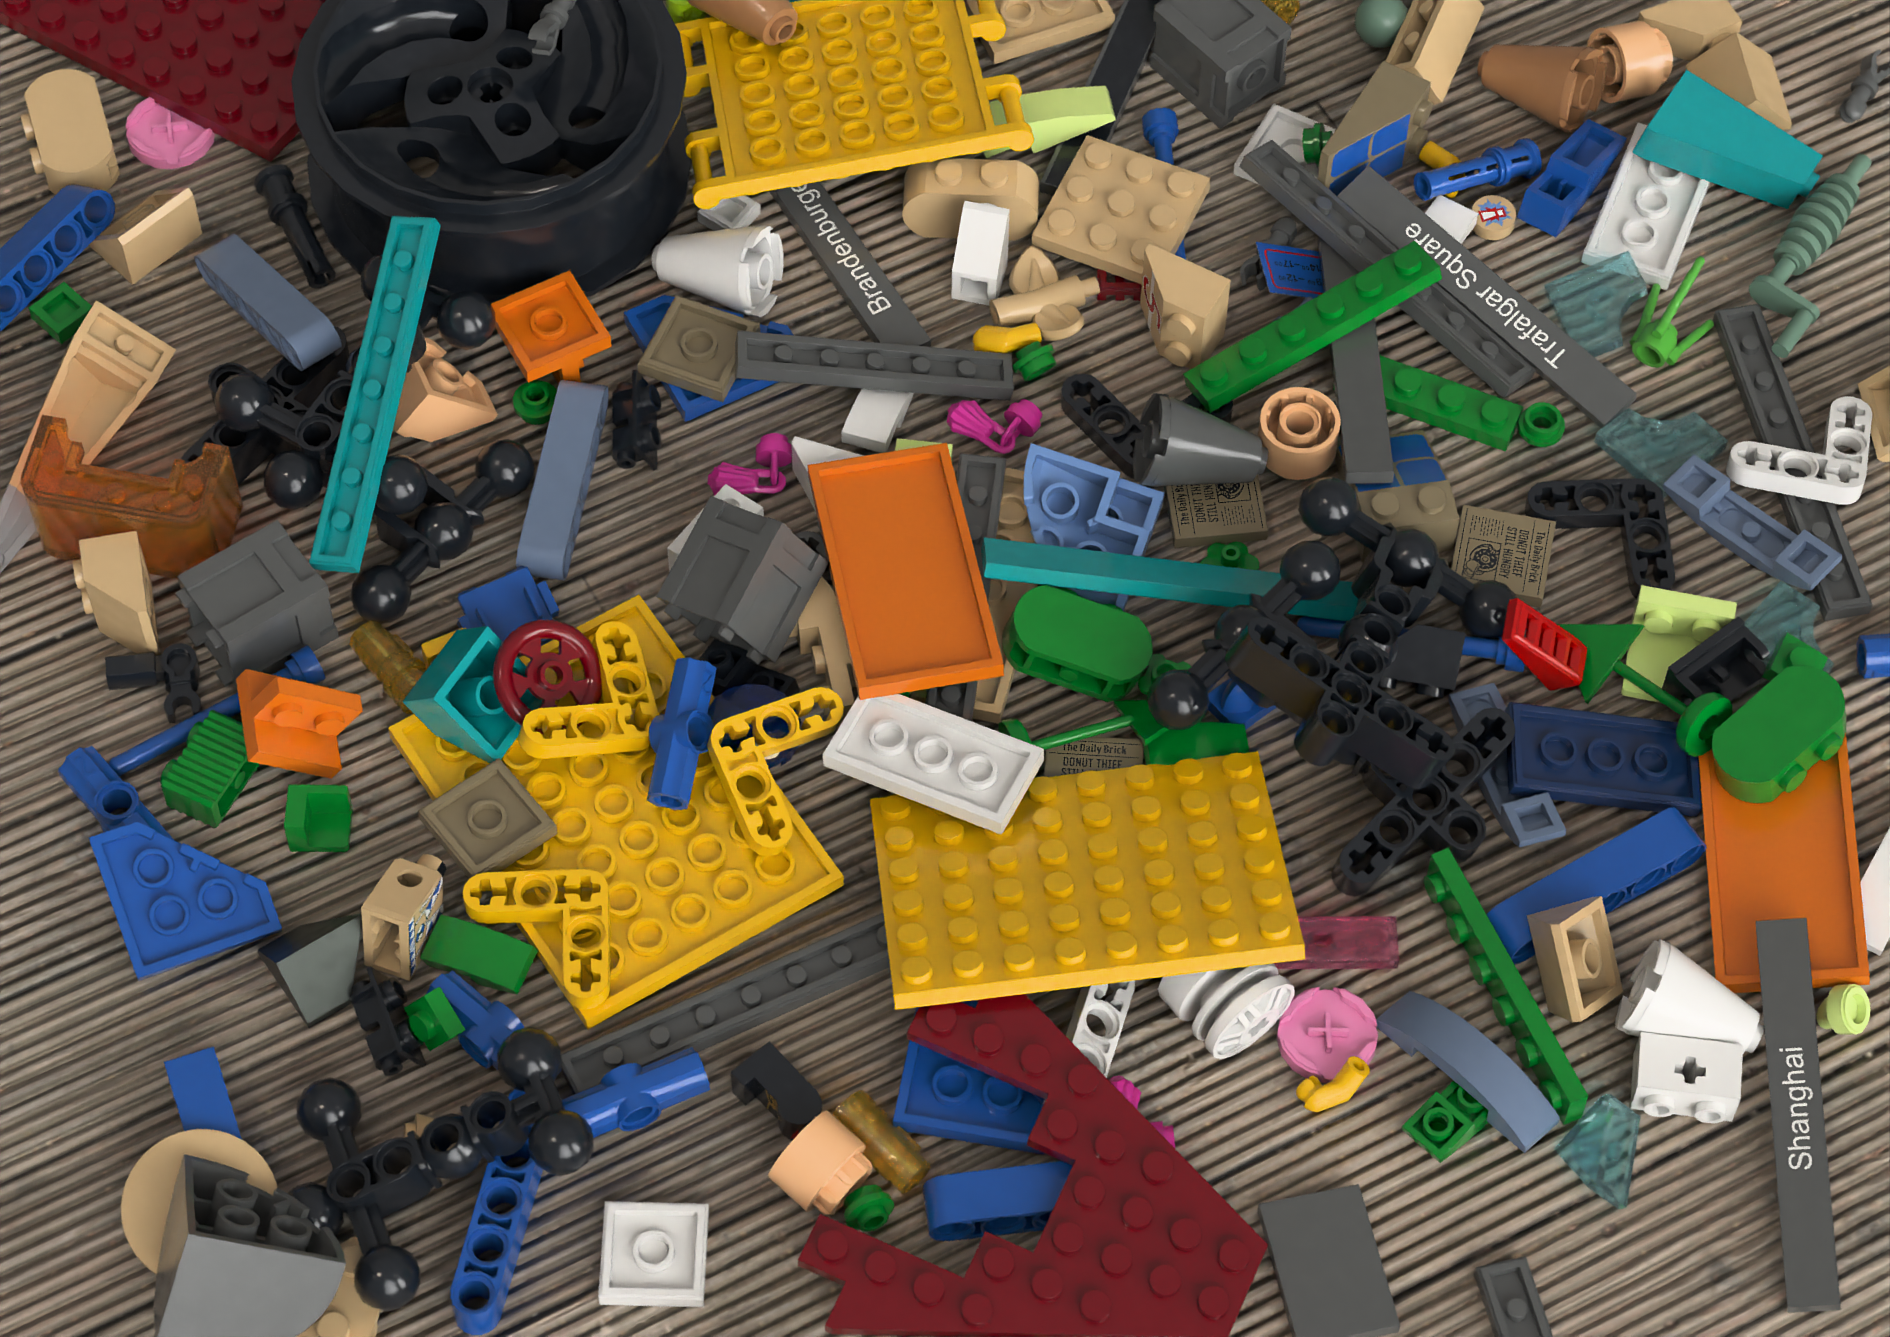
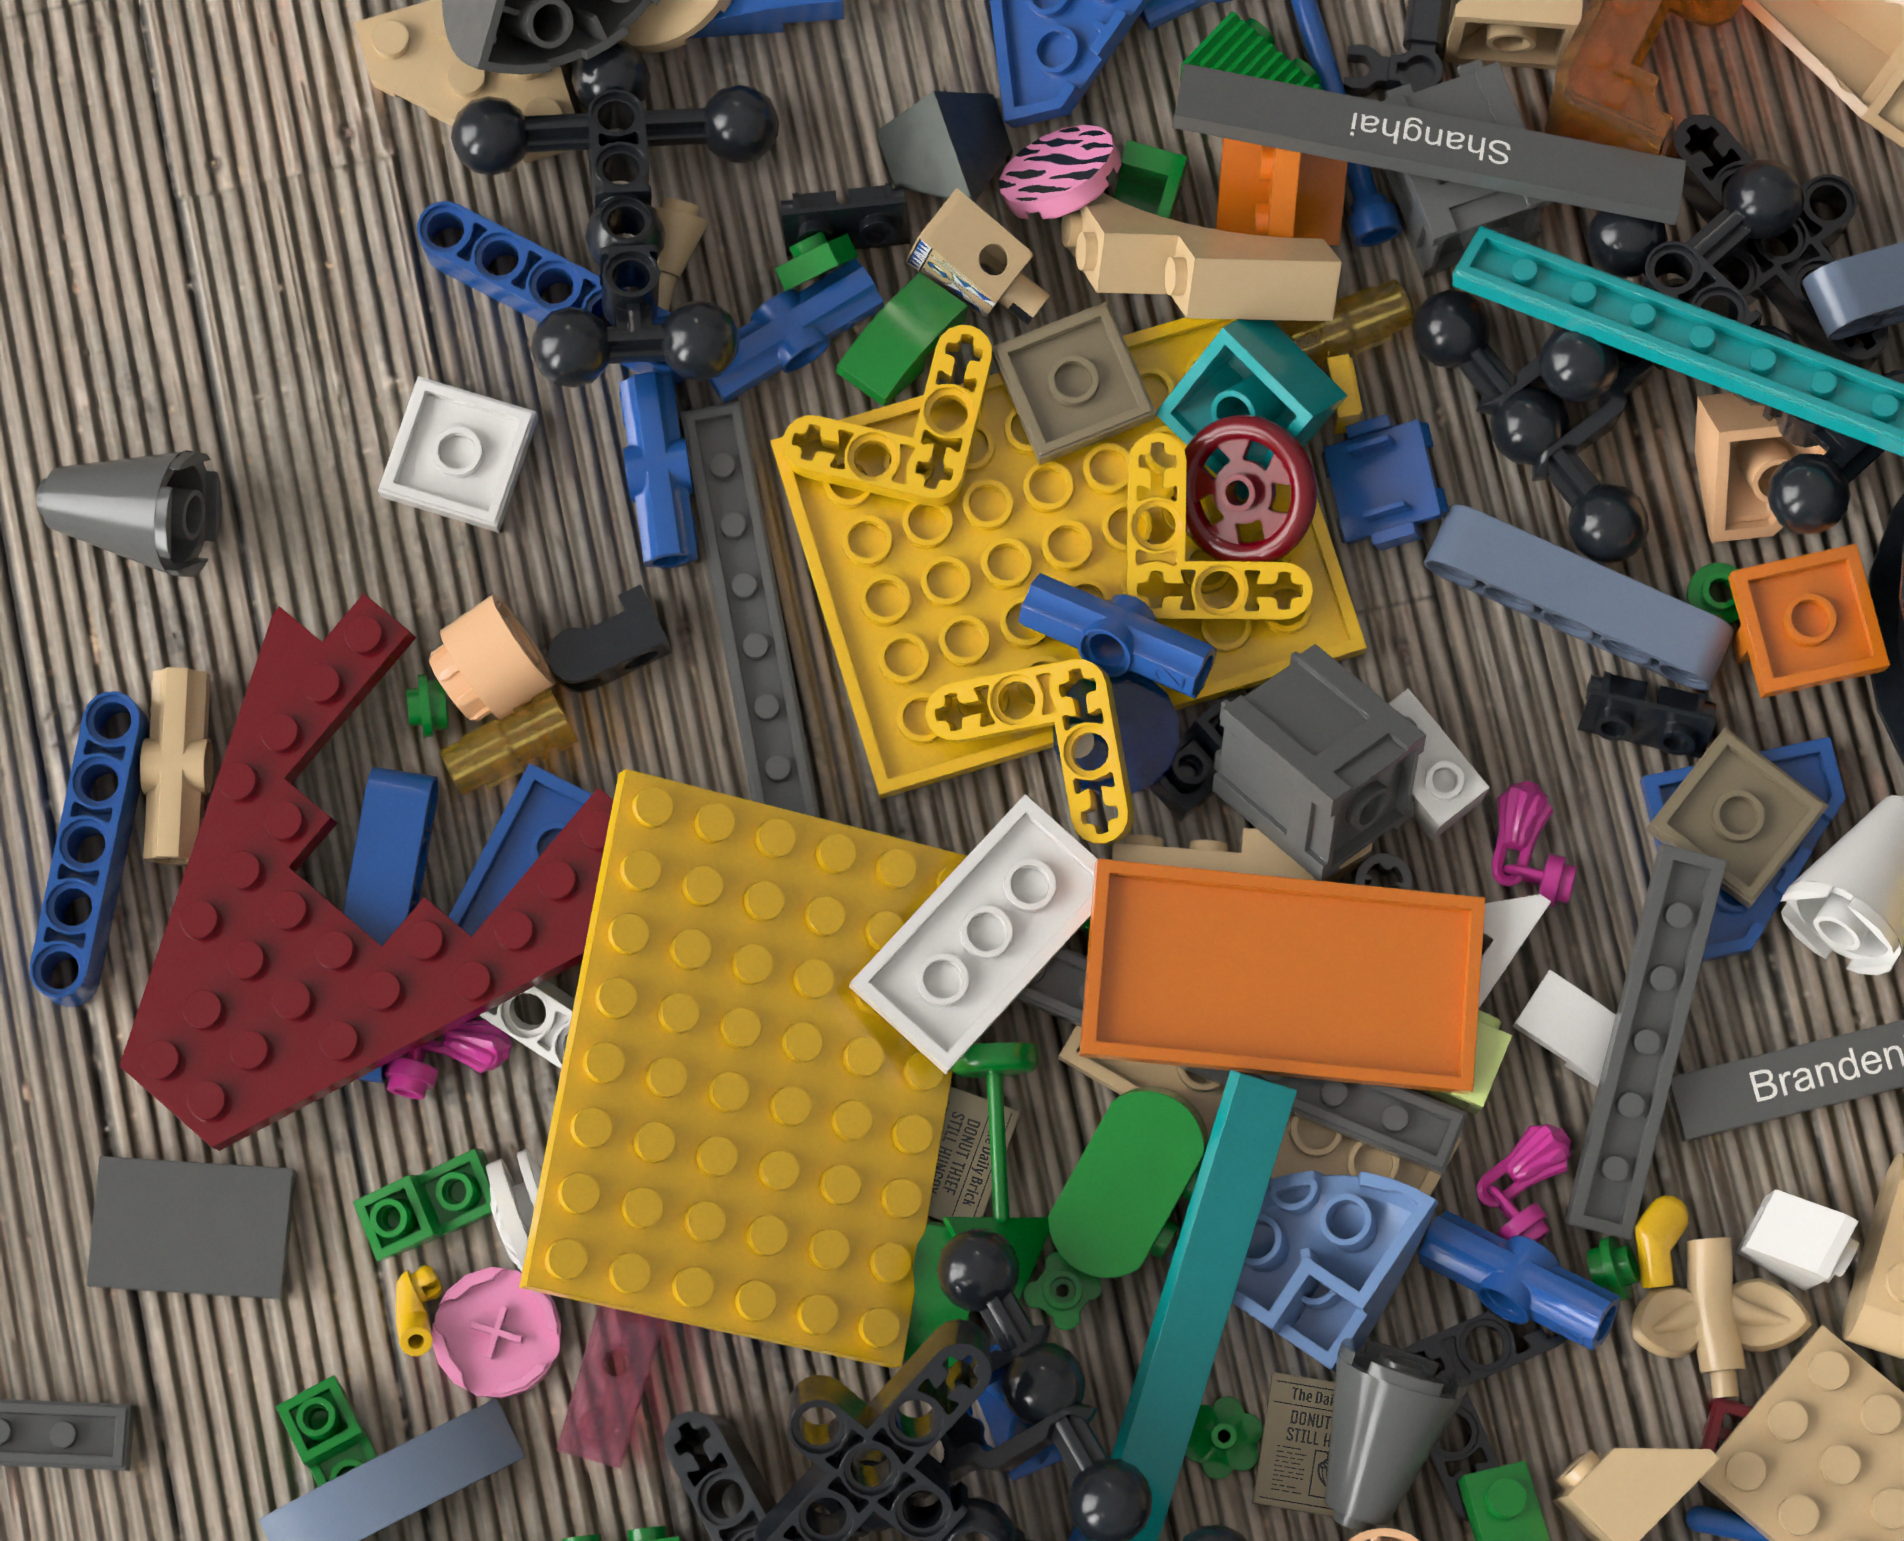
camera: 110 degrees right, 20 degrees up
(258, 599) = (1430, 144): none -> dark grey tile
(319, 871) = (1060, 172): none -> bright pink tile
(383, 732) = (1201, 267): none -> tan arch
(1066, 395) = (1519, 1280): none -> blue piece
(1249, 1105) = (426, 1205): none -> green slope

